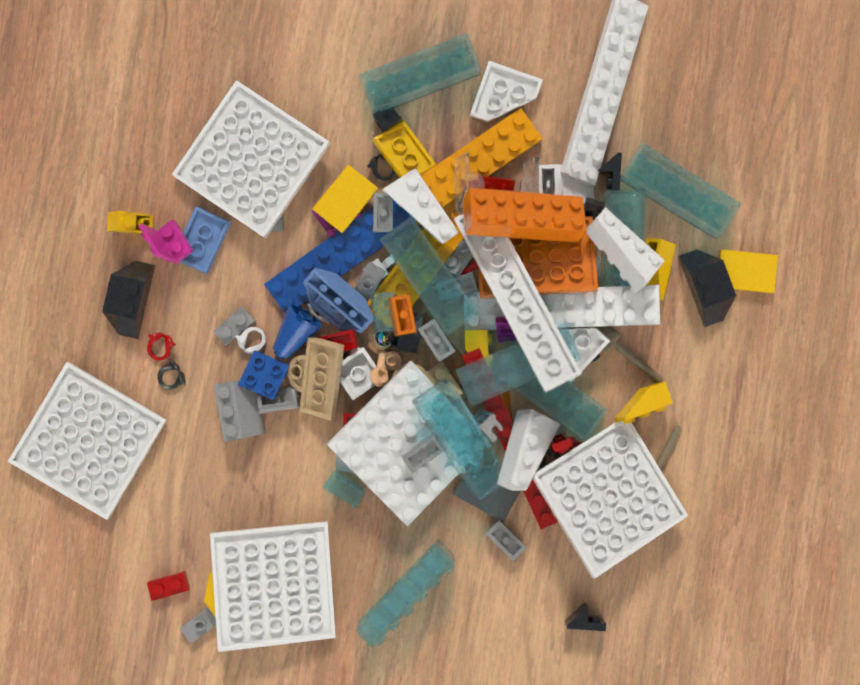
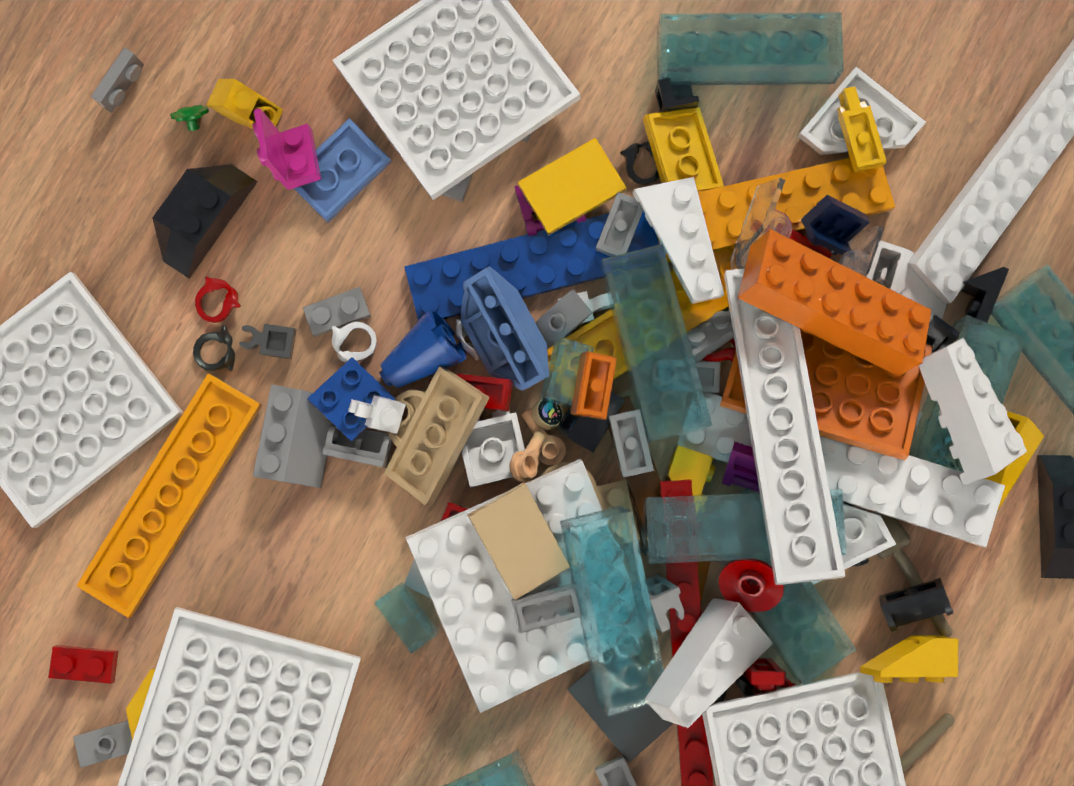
camera: 20 degrees right, 5 degrees down
(45, 241) = (117, 80): none -> light grey plate
(99, 240) = (190, 115): none -> green plant
(179, 470) = (169, 496): none -> light orange plate
(203, 357) = (273, 341): none -> dark grey plate
(284, 377) = (380, 414): none -> white plate
(392, 421) = (518, 541): none -> tan tile
(504, 102) = (860, 132): none -> yellow hinge
(509, 165) = (833, 224): none -> dark blue bracket
(533, 396) = (755, 594): none -> red dish
(634, 370) = (915, 603): none -> black hinge

